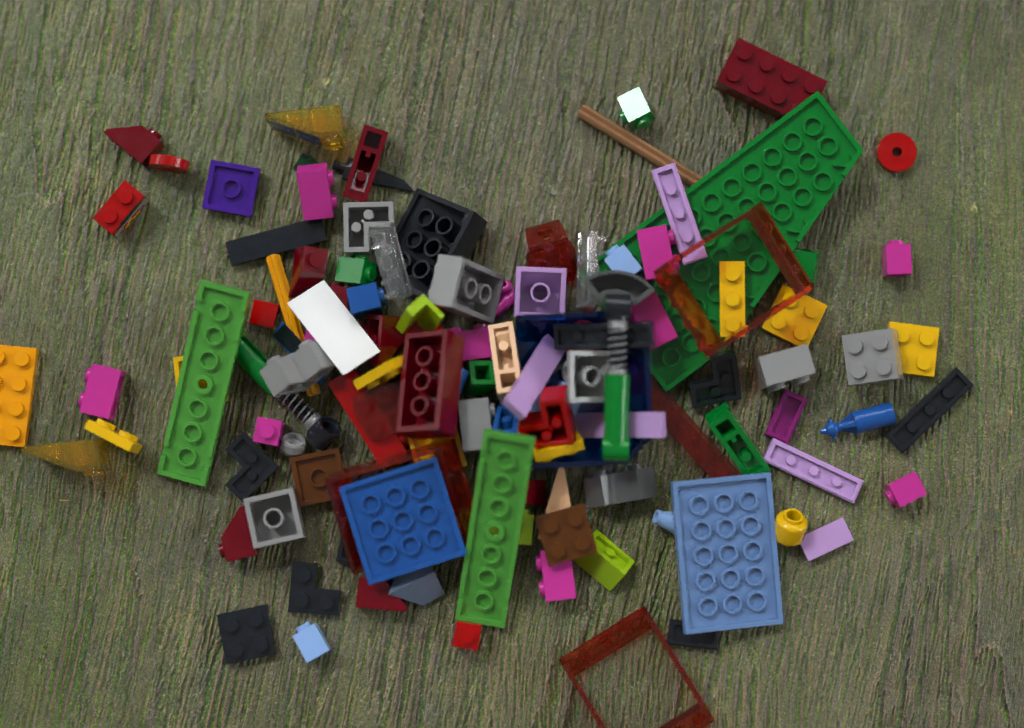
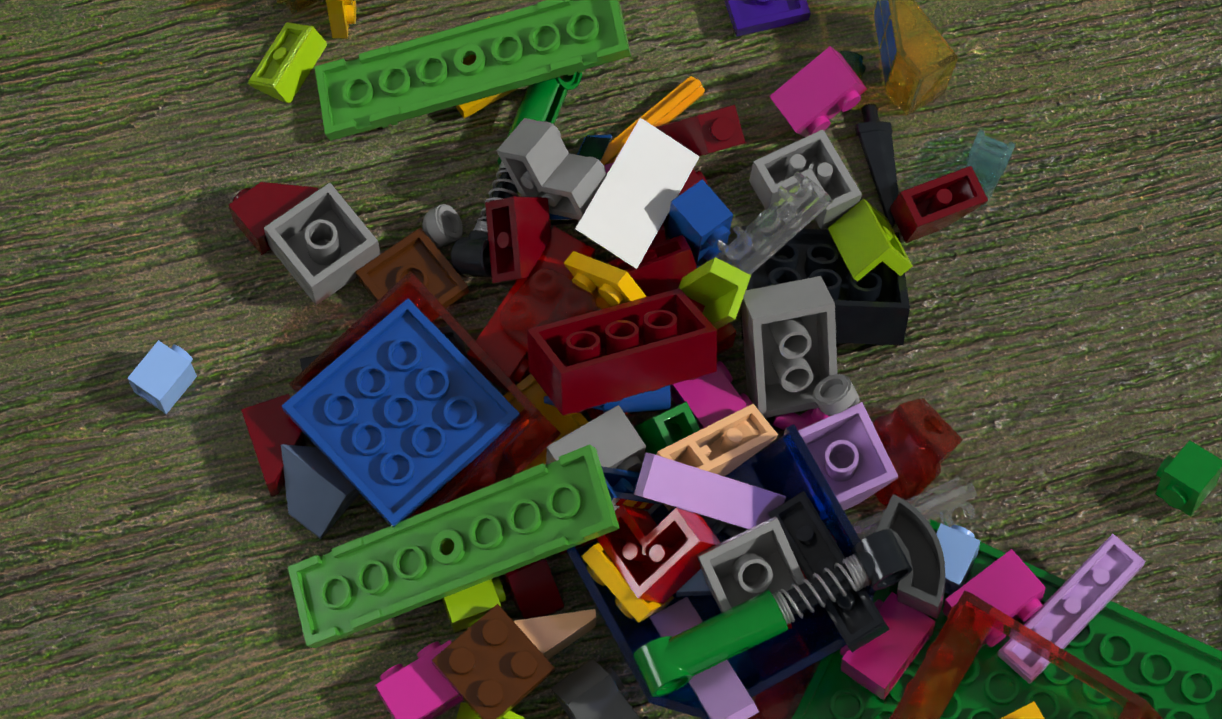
camera: 60 degrees right, 15 degrees down
(143, 487) = (288, 61): none -> lime slope
(246, 634) = (136, 286): black plate -> none
(255, 470) = (388, 190): black plate -> none
(264, 314) = (610, 110): red tile -> none
(269, 431) = (445, 182): dark pink brick -> none
(275, 241) = (721, 80): black tile -> none
(305, 596) = (229, 341): black plate -> none
(326, 407) = (516, 235): none -> dark red slope
(355, 270) = (737, 192): green brick -> none
(365, 163) = (897, 140): dark red slope -> none
(400, 116) = (989, 160): none -> clear light blue piece
(415, 159) = (937, 203): none -> dark red slope
(420, 210) = (866, 240): none -> lime panel
(467, 635) = (270, 594): red brick -> none
(504, 278) = (835, 394): none -> light grey tile
(635, 143) = (1137, 499): medium nougat axle -> none

